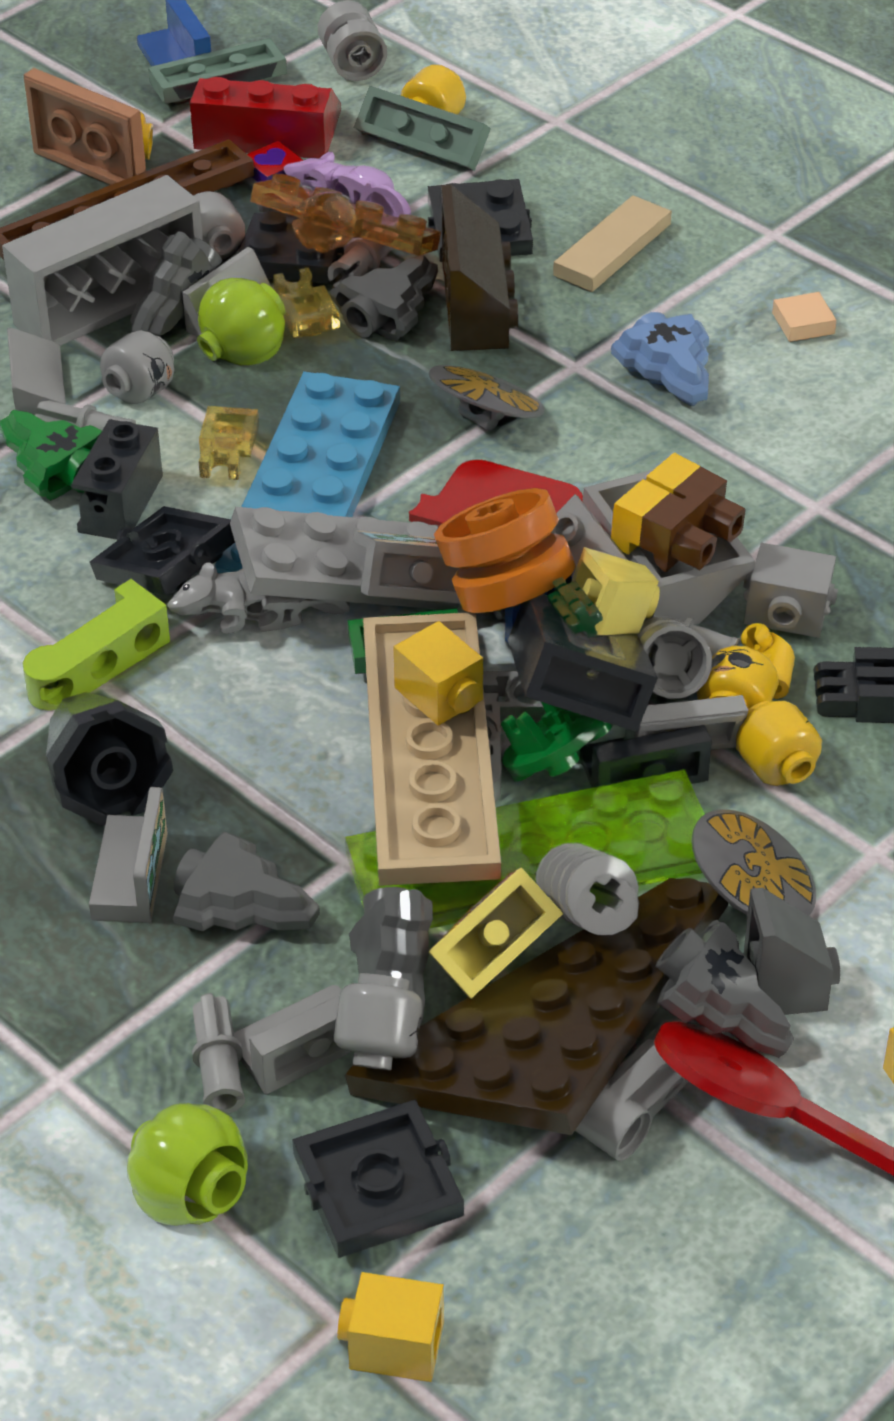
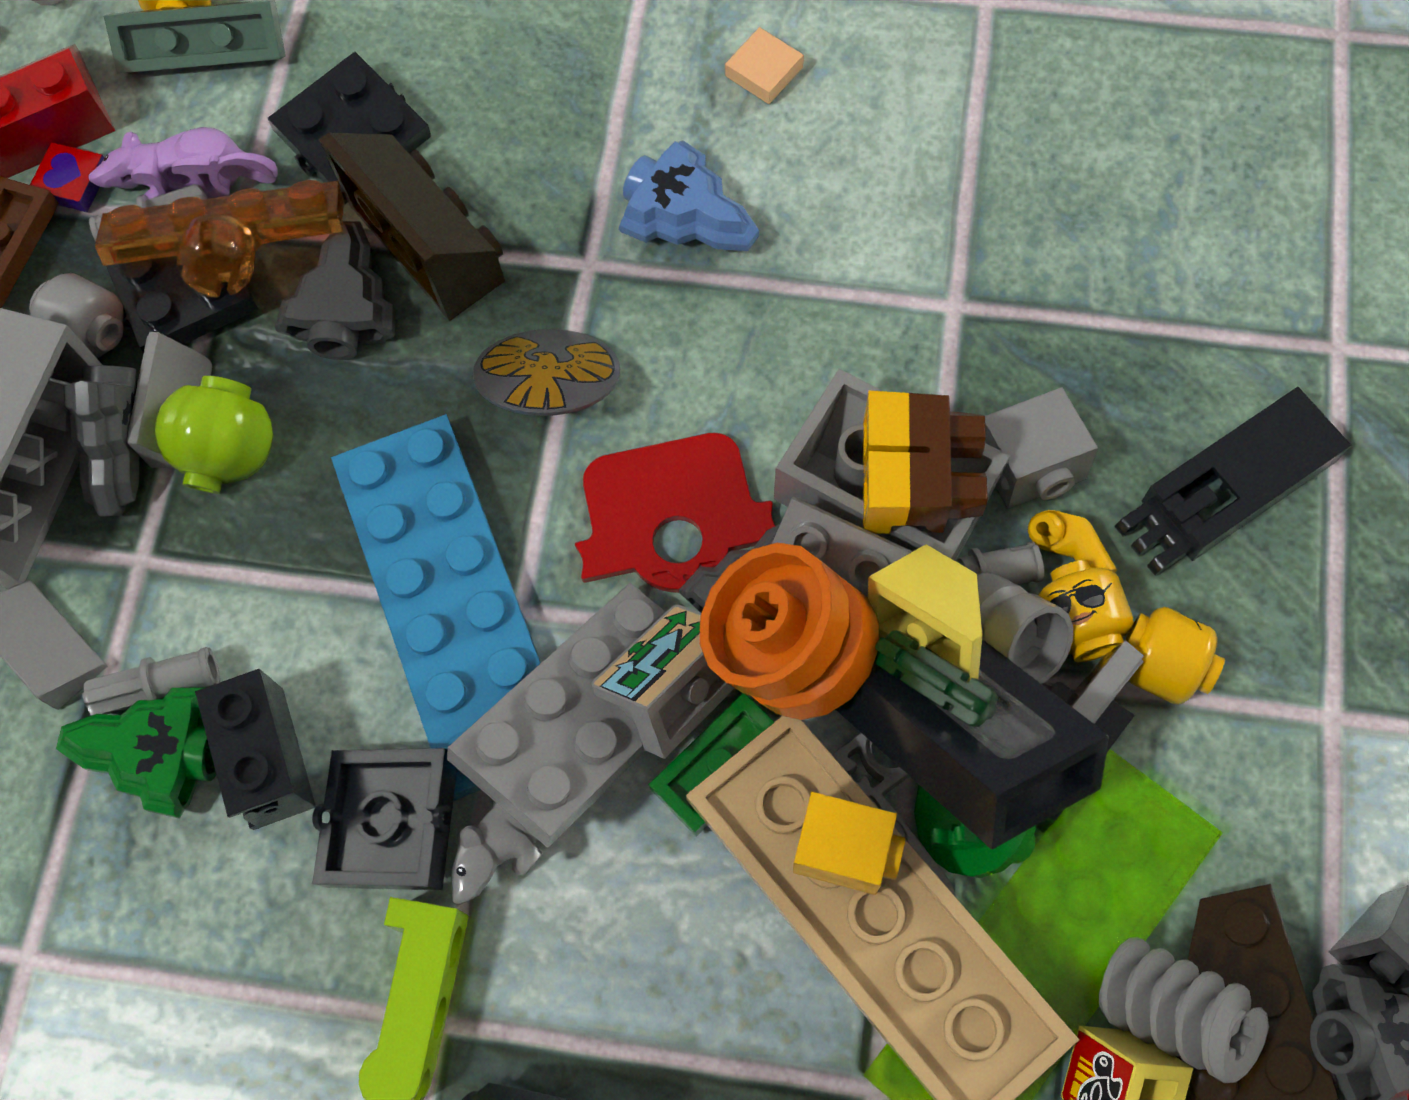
camera: 30 degrees left, 25 degrees up
(139, 365) = (148, 568): light grey head -> none
(225, 438) = (319, 603): clear yellow plate -> none
(307, 308) = (263, 363): clear yellow plate -> none
(359, 259) = (272, 275): light grey axle -> none
(612, 243) = (506, 78): tan tile -> none
(745, 854) = (1275, 840): shield -> none

